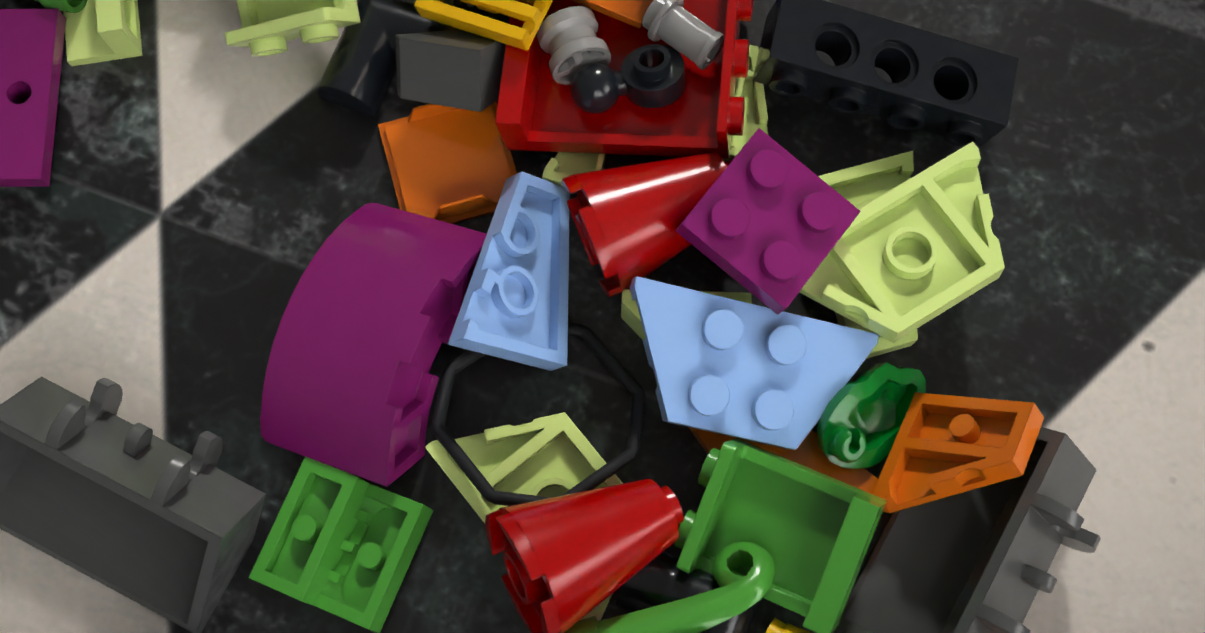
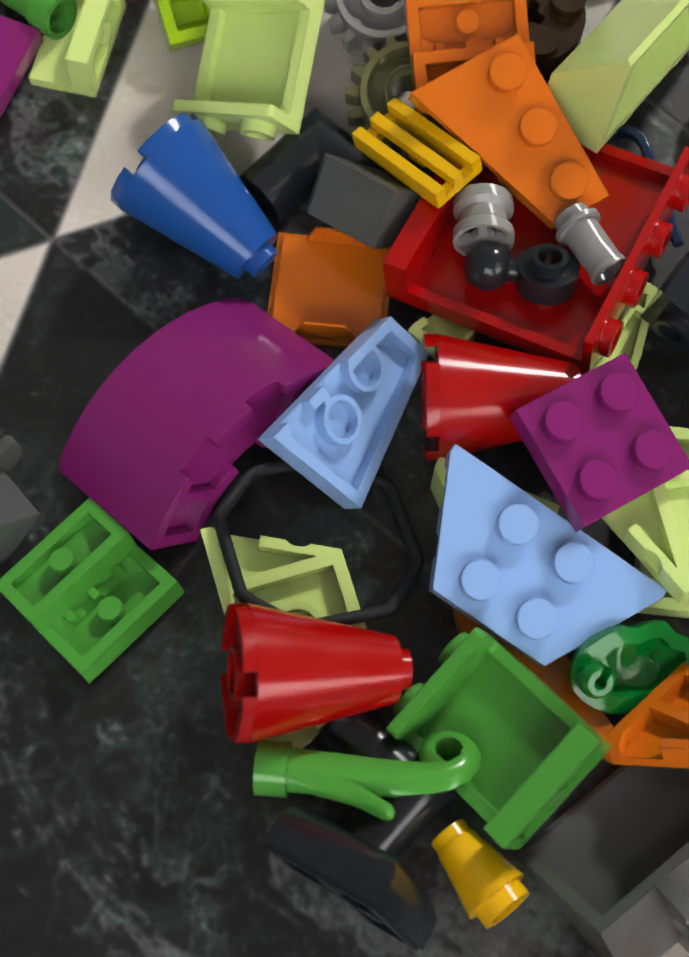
camera: 20 degrees right, 5 degrees down
(288, 125) = (197, 199): none -> blue cone

